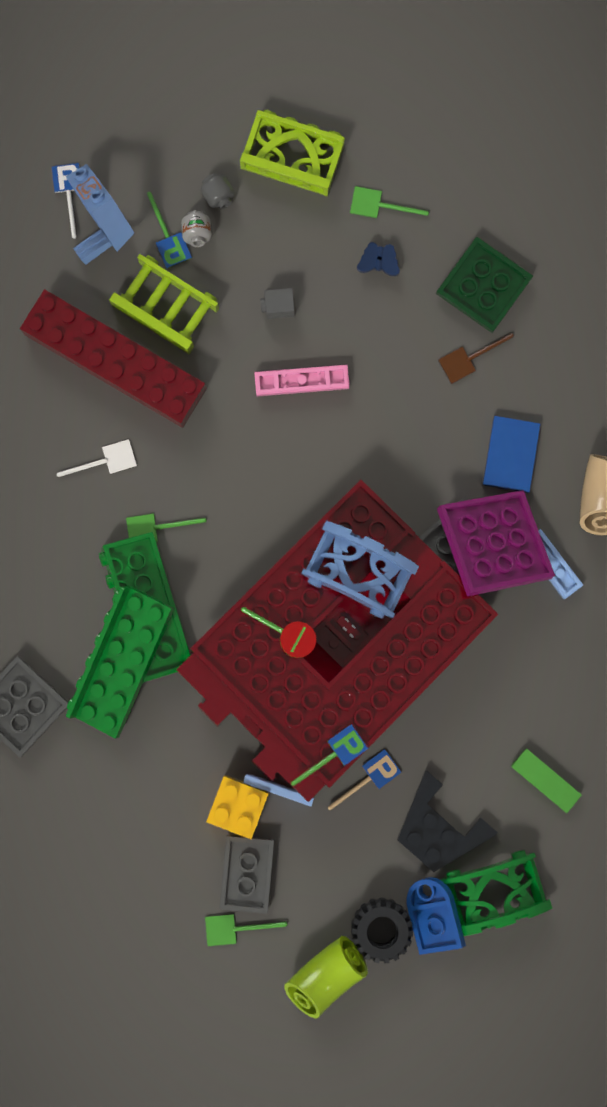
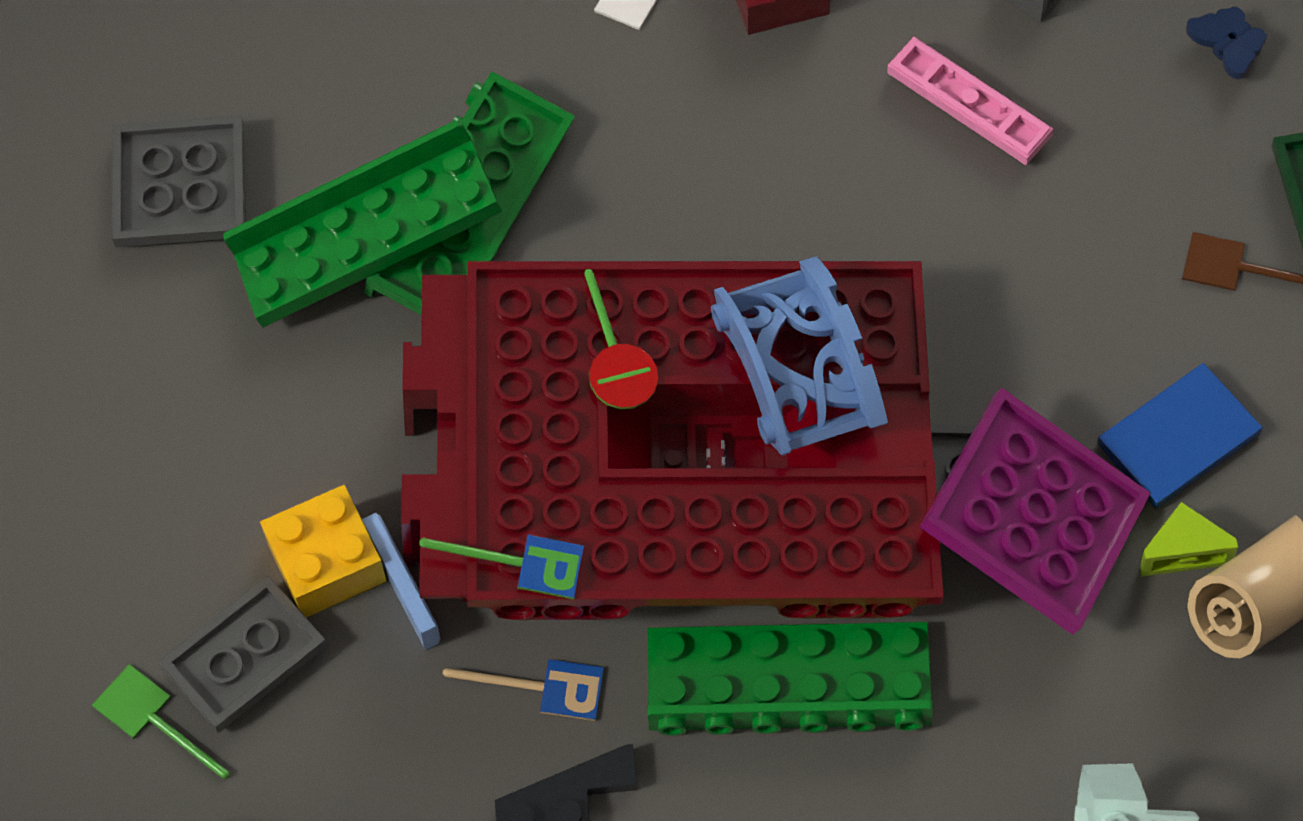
camera: 50 degrees right, 20 degrees down
(146, 523) = (583, 108): bright green piece -> none
(460, 691) = (789, 677): none -> green bracket
(554, 499) = (1187, 544): none -> lime slope
(565, 579) = (1098, 643): light blue tile -> none

